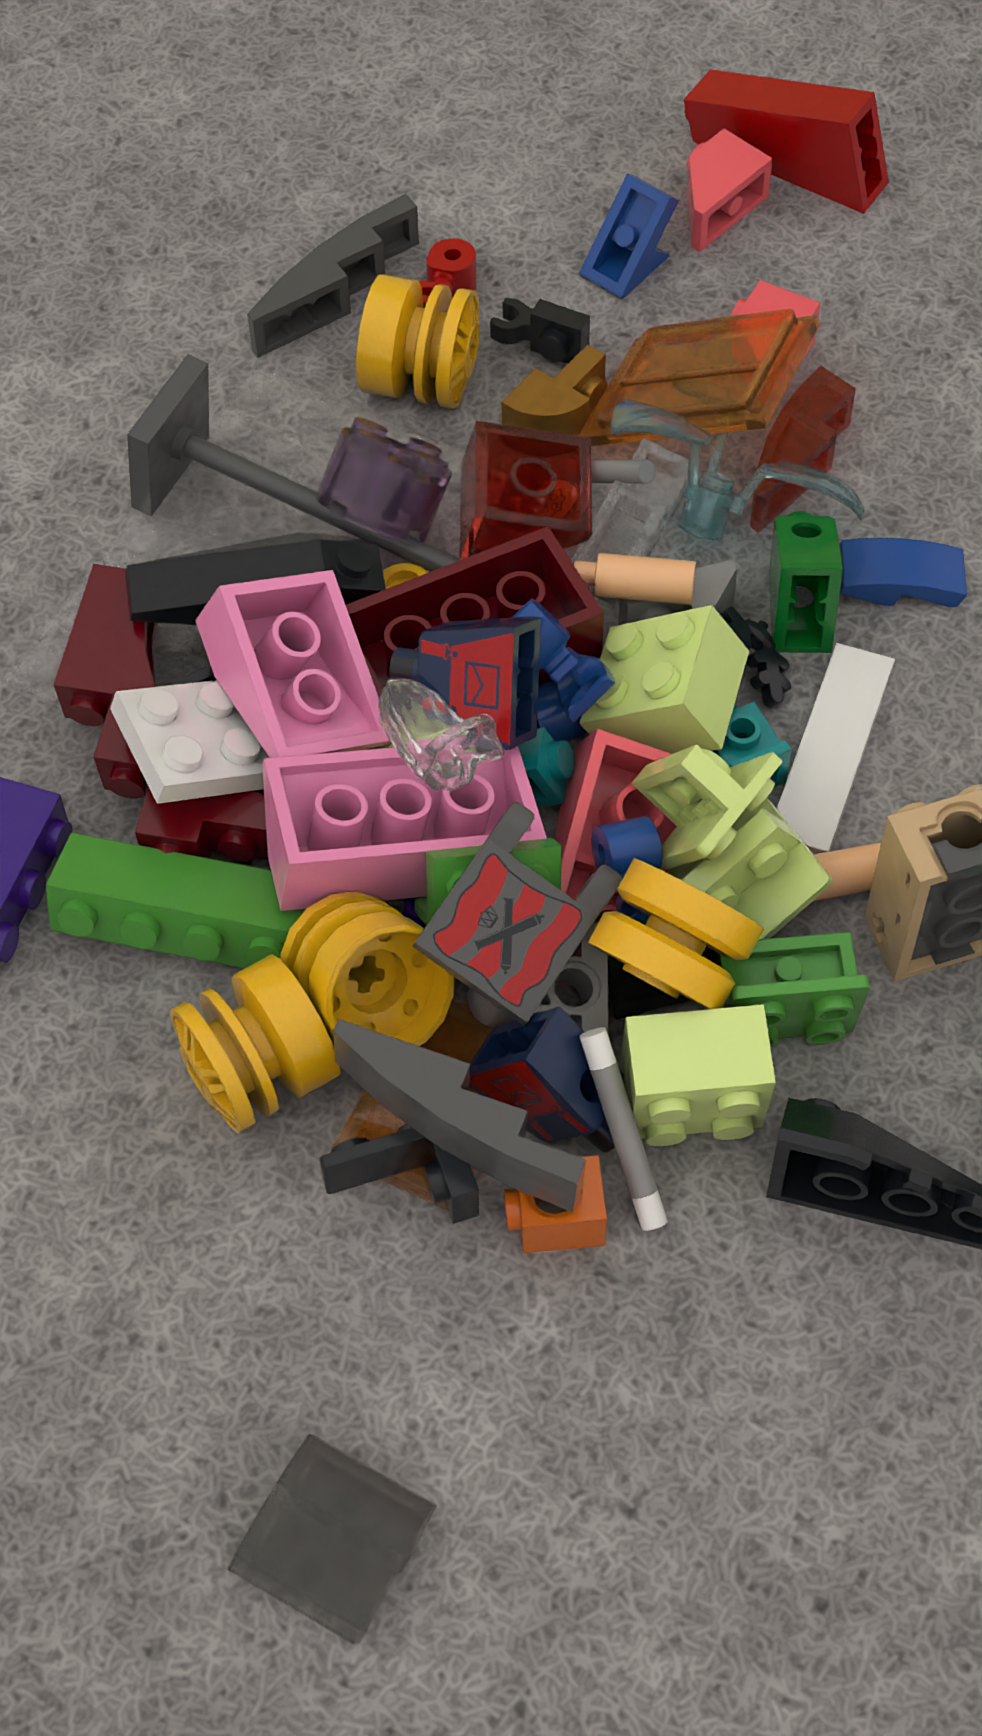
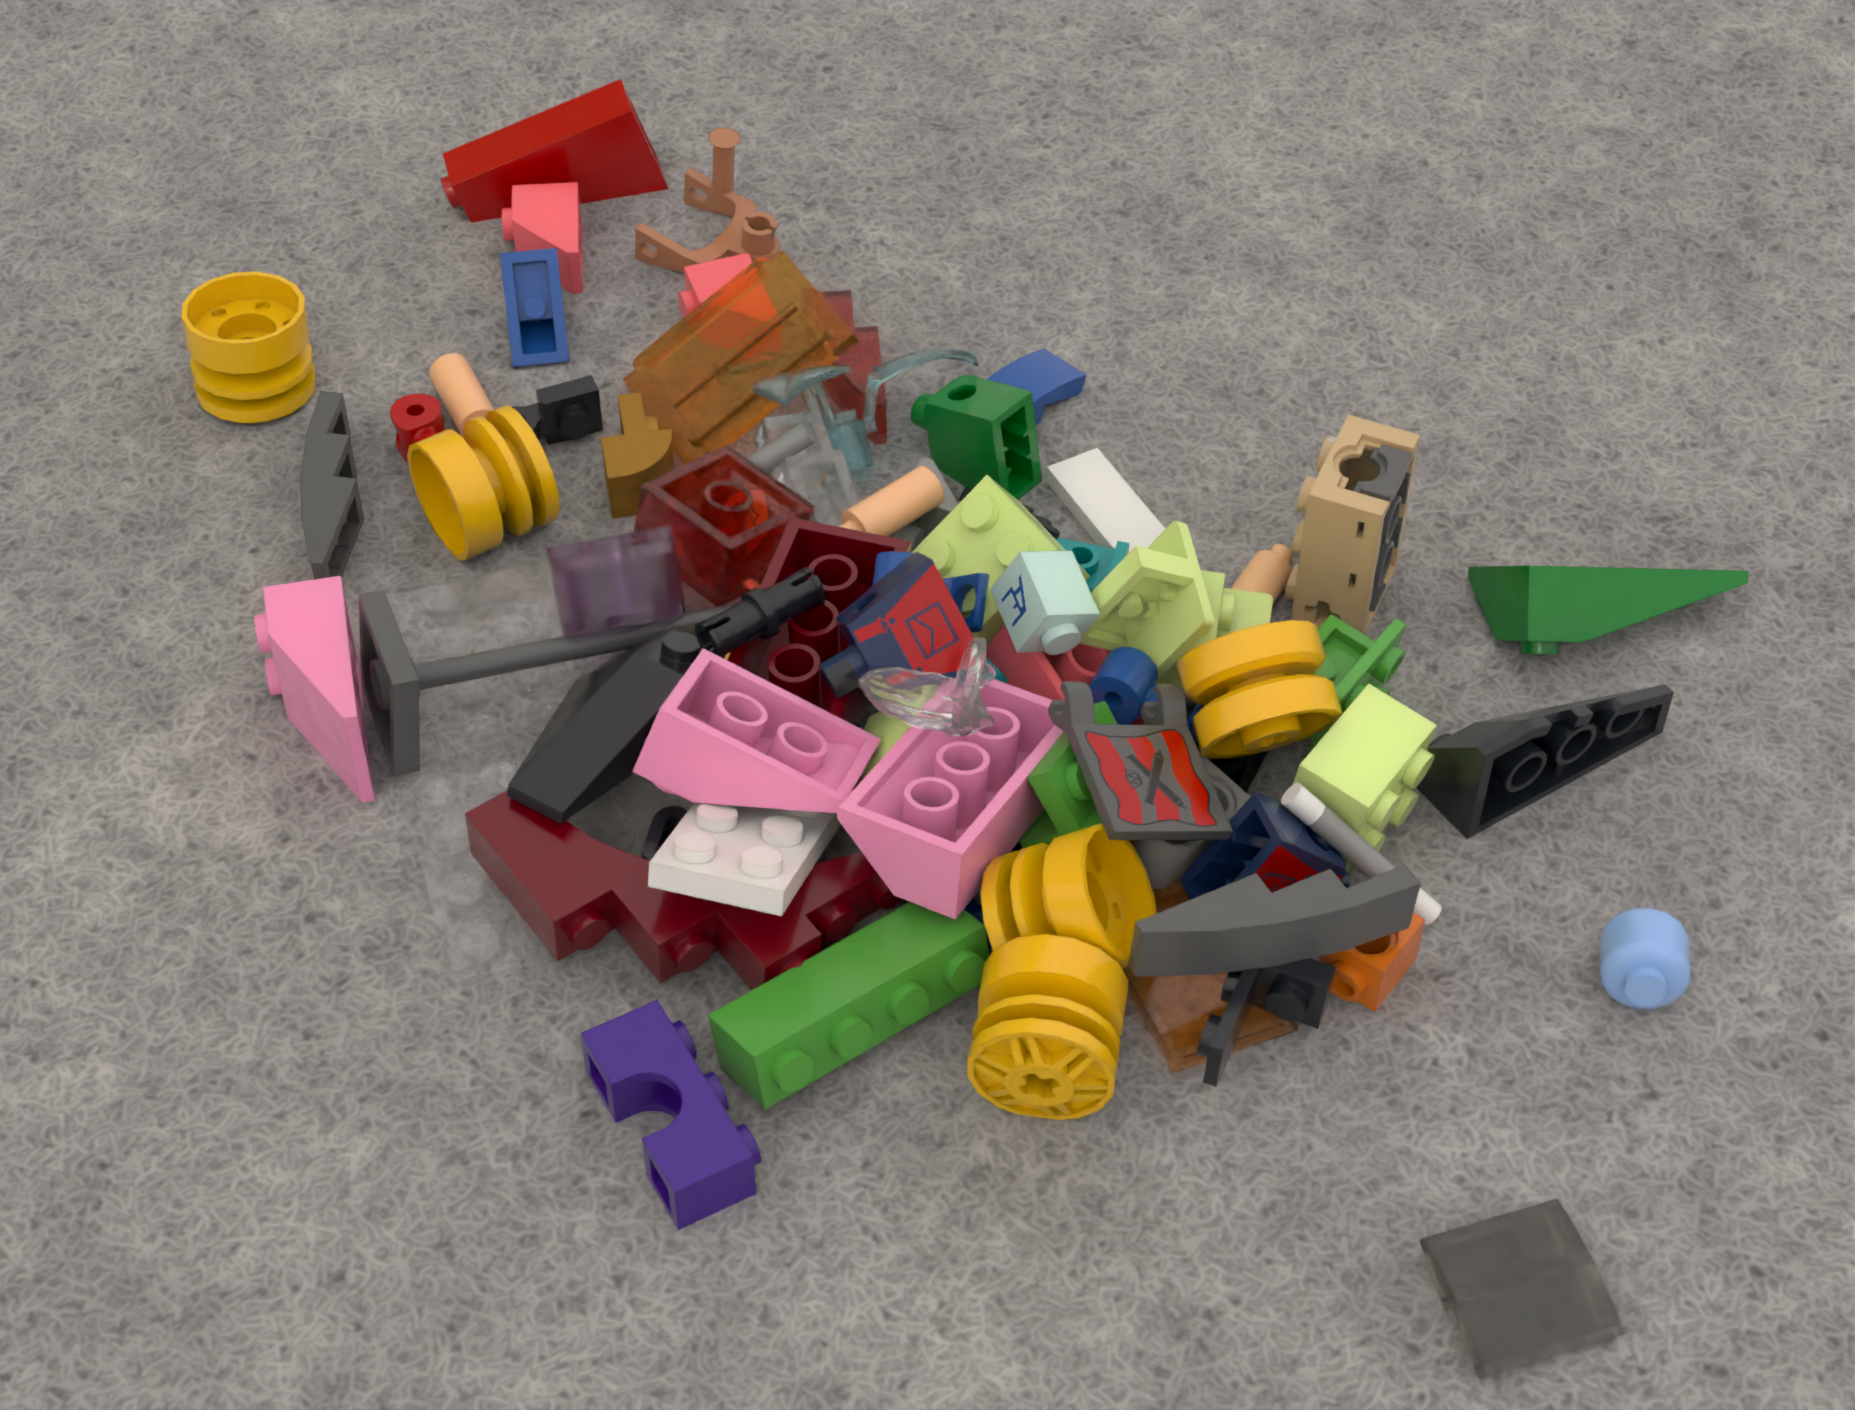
camera: 50 degrees left, 10 degrees down
(141, 369) = (318, 673): none -> bright pink slope
(404, 127) = (249, 346): none -> yellow wheel
(420, 578) = (760, 613): none -> black pin
(509, 271) = (459, 389): none -> light nougat cylinder
(624, 737) = (1044, 601): none -> light aqua brick
(747, 1409) = (1644, 958): none -> light blue head
(852, 296) = (747, 232): none -> nougat piece

